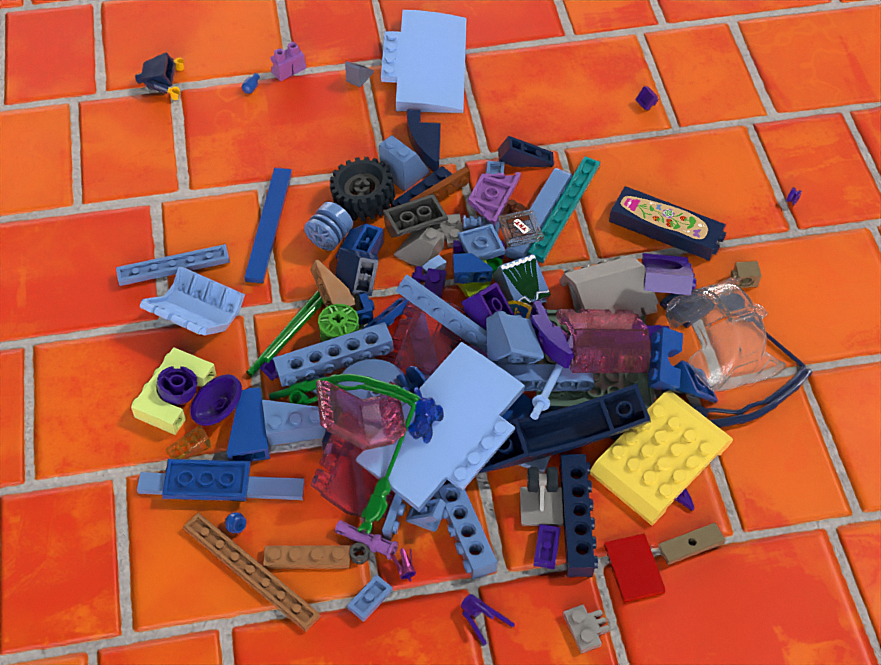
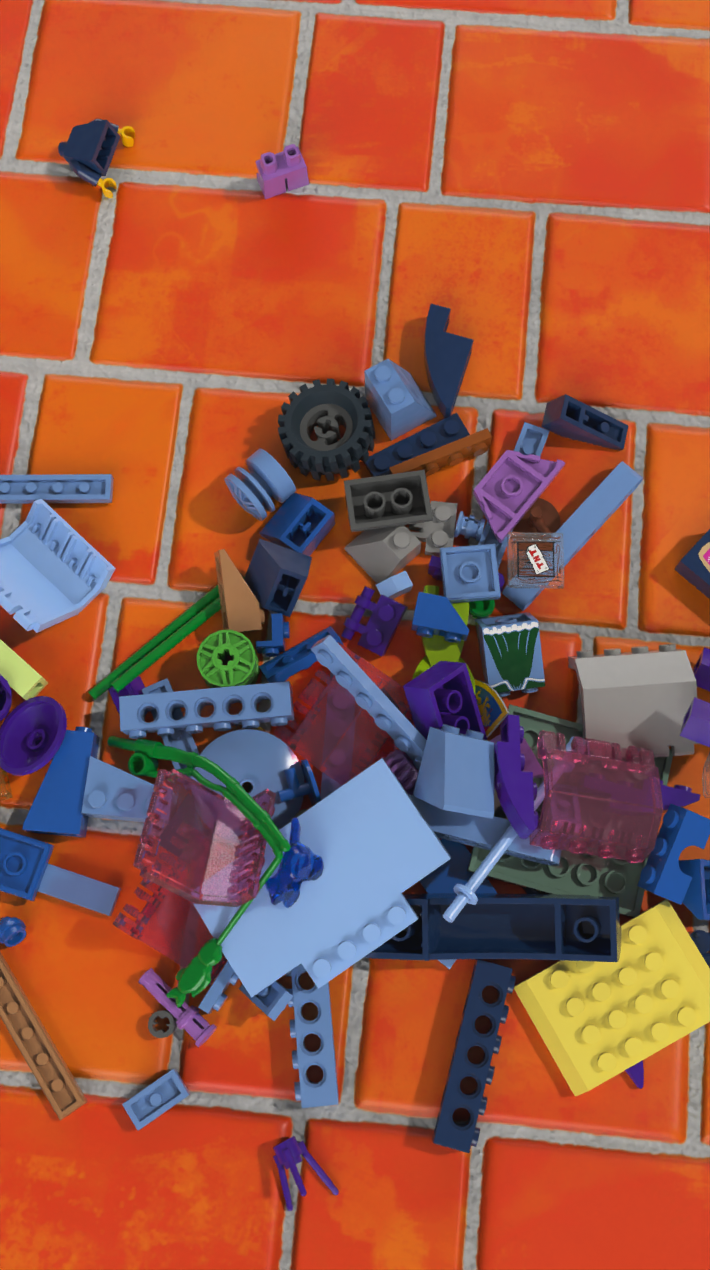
camera: 20 degrees right, 20 degrees up
(250, 84) = (219, 196): blue cylinder -> none
(268, 226) = (181, 453): blue tile -> none
(307, 557) = (92, 1008): medium nougat plate -> none
(357, 73) = (380, 213): sand blue slope -> none
(407, 570) = (215, 1062): flat silver piece -> none
(426, 62) = (488, 215): light blue slope -> none
(541, 503) = (430, 1020): light grey plate -> none
(547, 546) = (416, 1091): dark purple plate -> none
(564, 208) = (616, 530): teal tile -> none
(586, 627) = (432, 1228): light grey hinge -> none
(634, 567) = (528, 1157): red tile -> none
(702, 539) = (638, 1145): dark tan tile -> none

